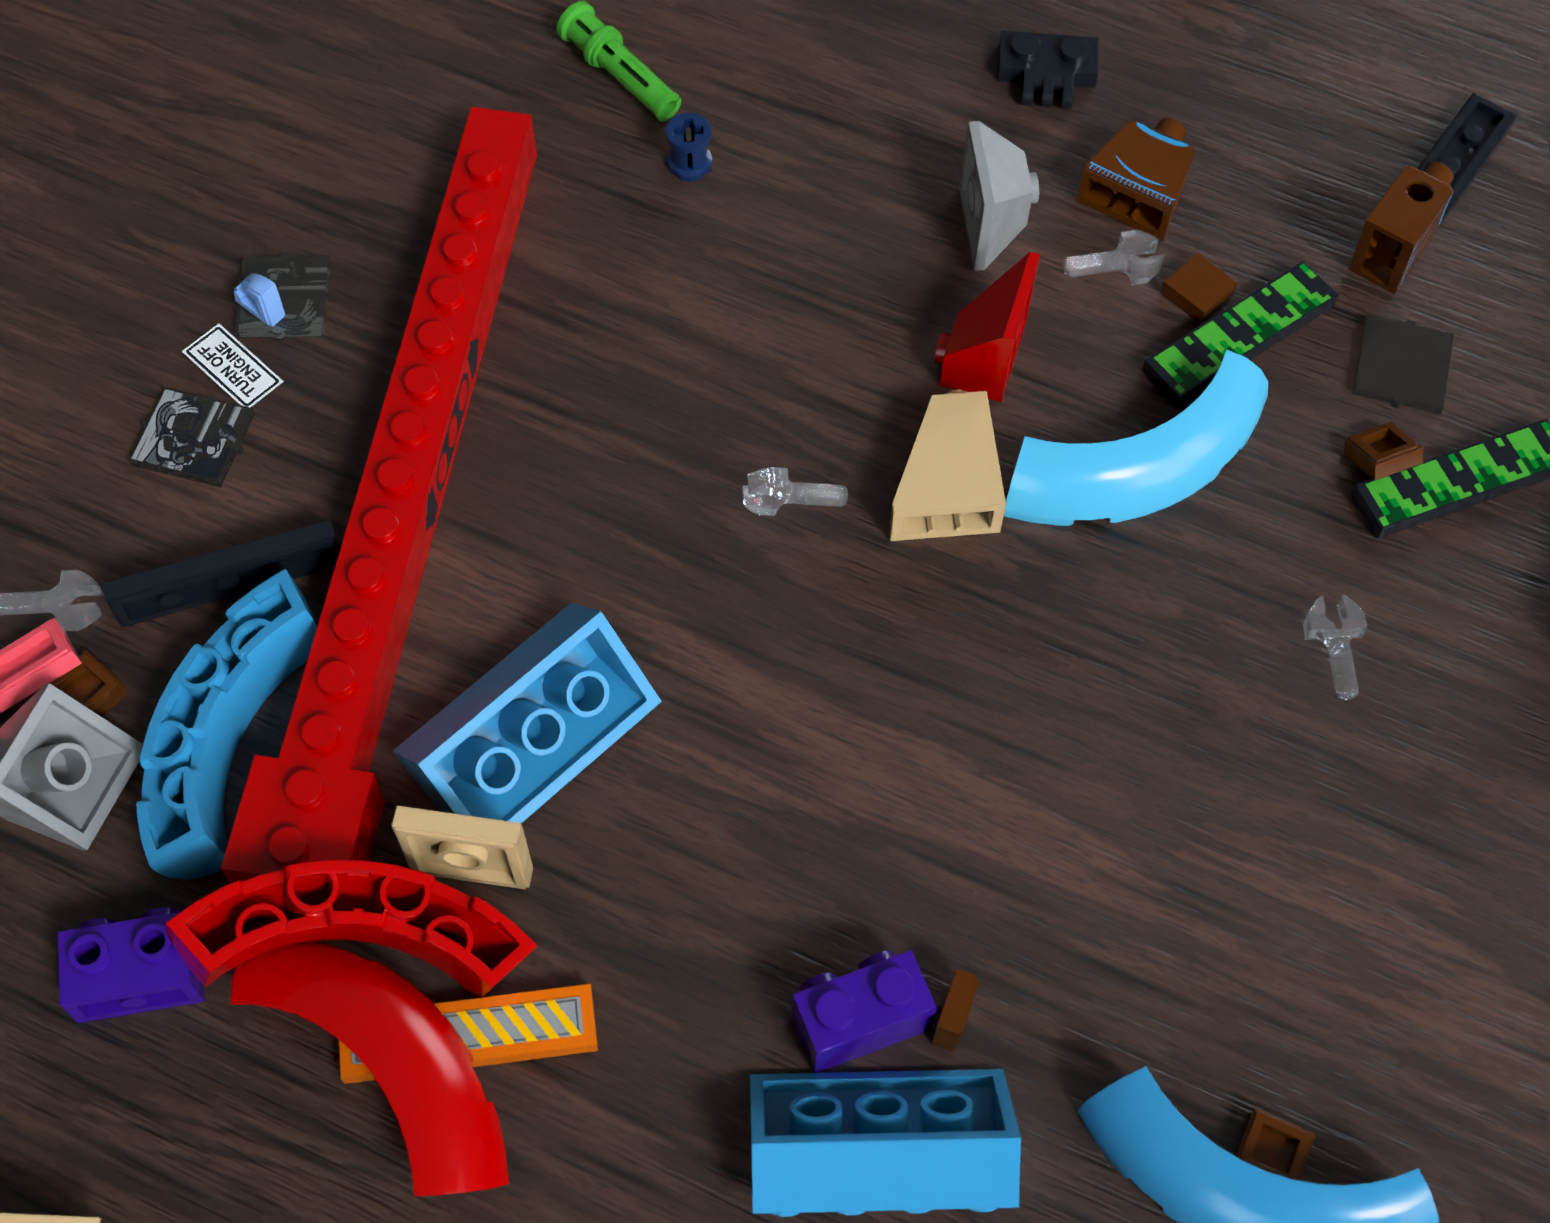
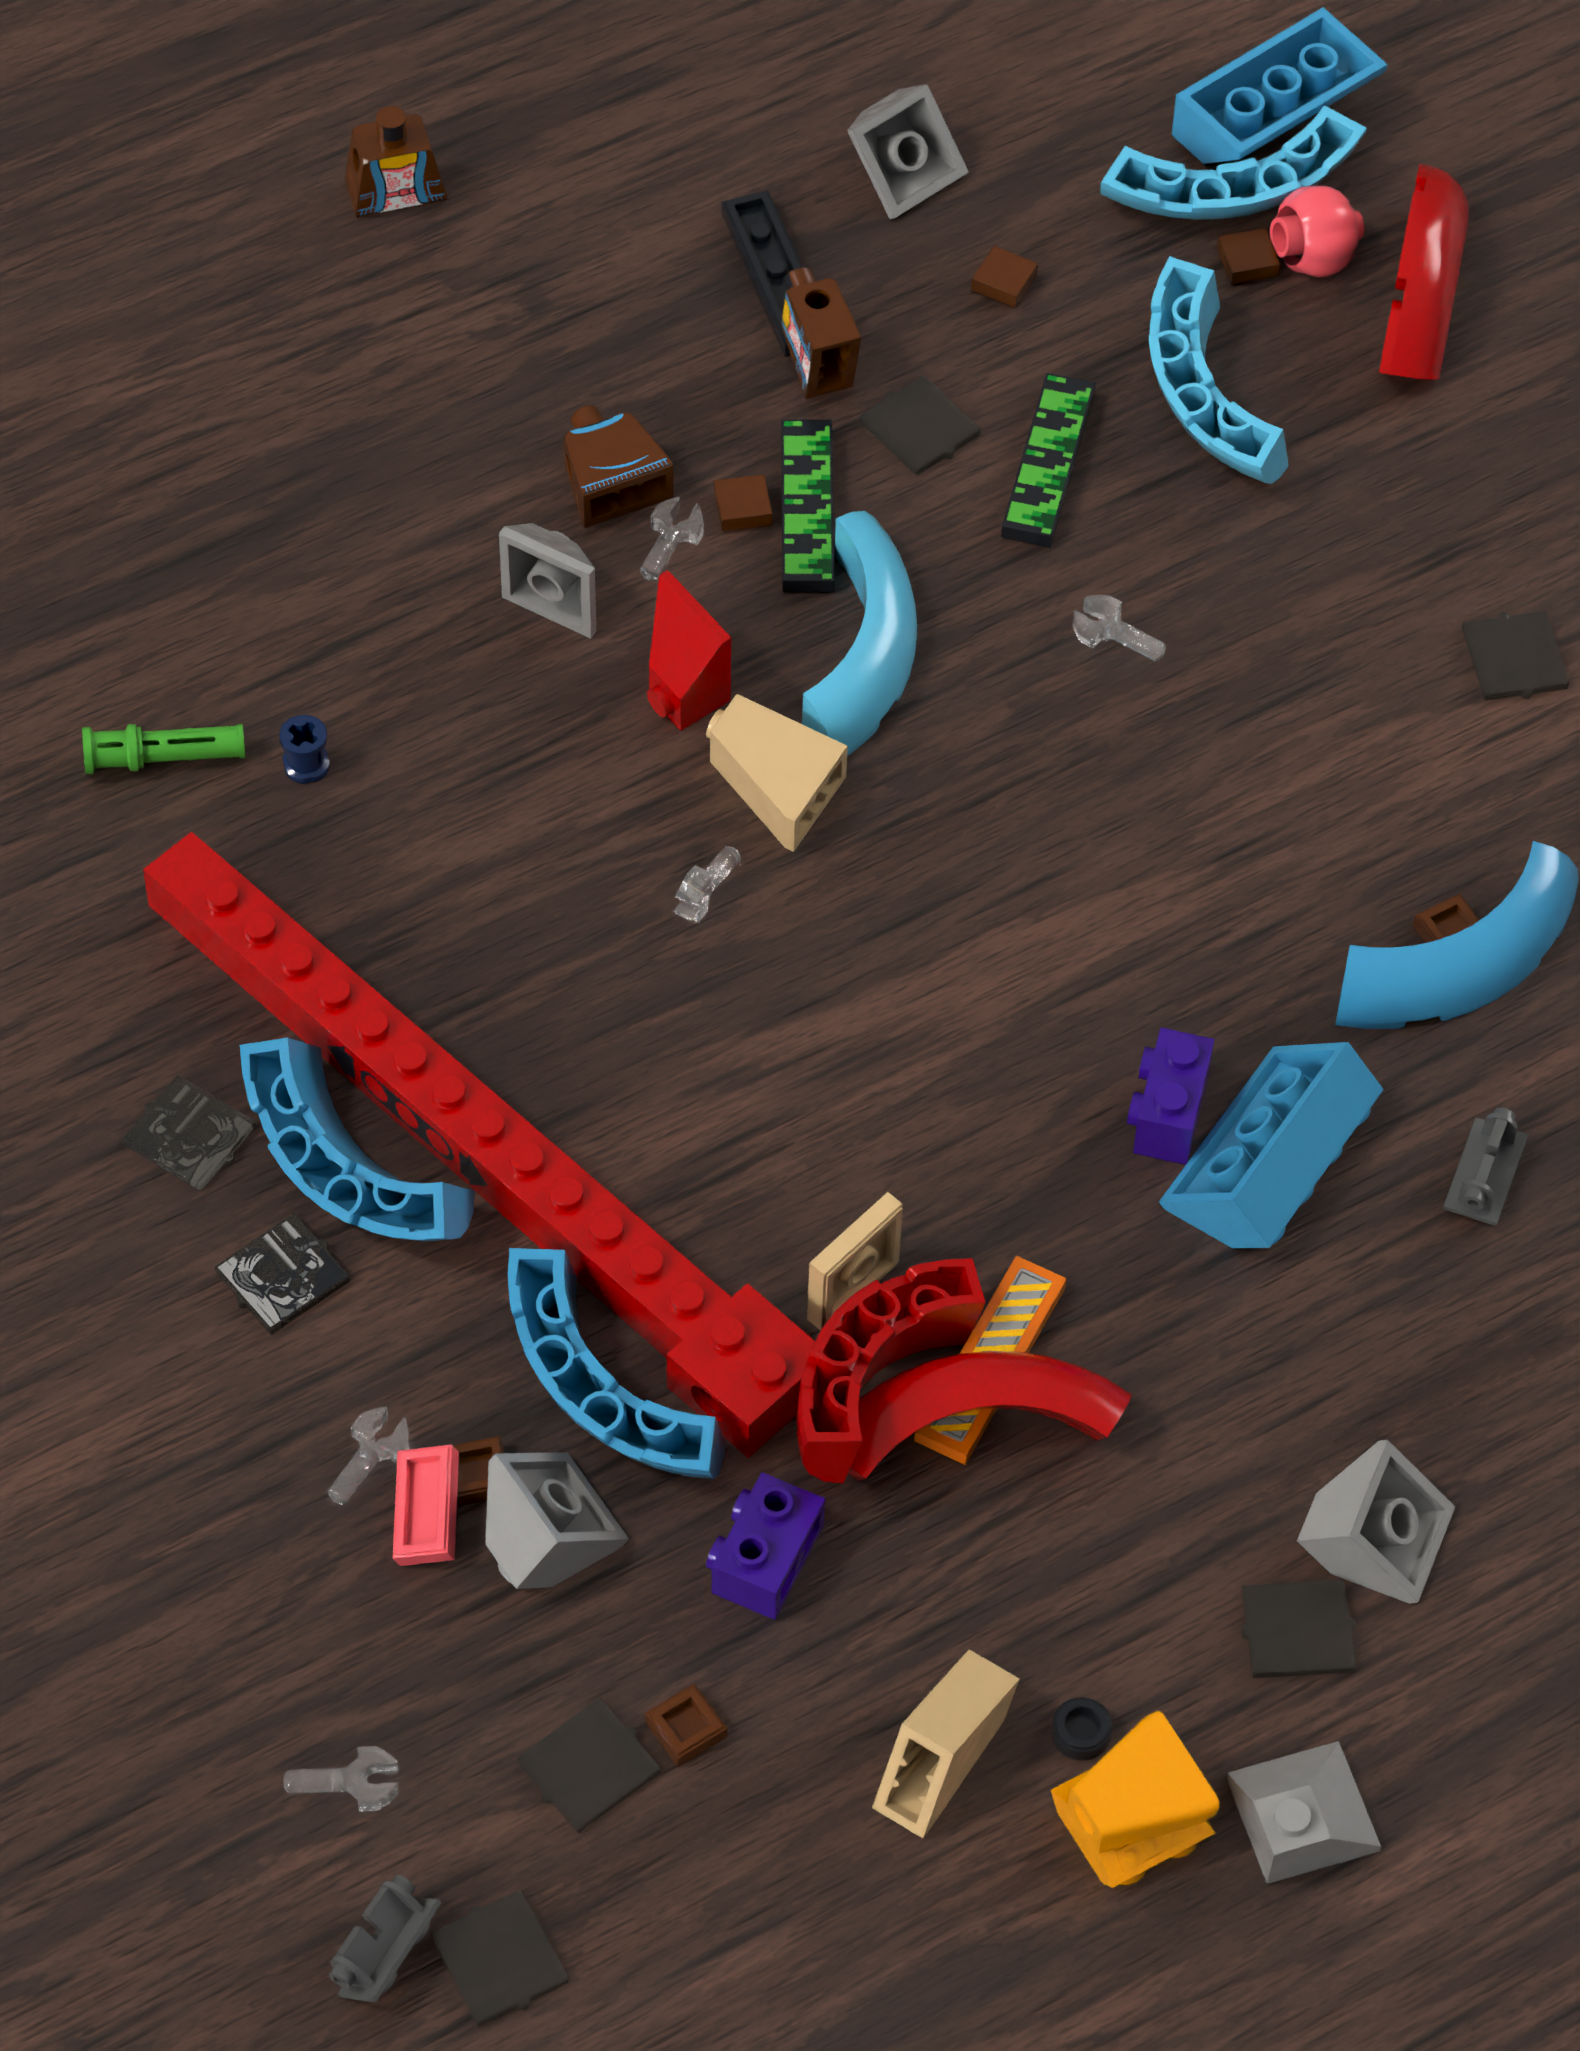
camera: 55 degrees left, 5 degrees down
(221, 573) = (457, 1309): black tile -> none
(232, 366) = (230, 1209): white sticker -> none
(260, 298) = (191, 1141): light blue tile -> none
(311, 401) = (320, 1157): none -> dark azure brick
(531, 721) = (765, 1169): dark azure slope -> none
(955, 1010) = (1209, 1024): reddish brown tile -> none
(1048, 64) = (436, 454): black hinge -> none
(1383, 450) = (988, 489): reddish brown tile -> none

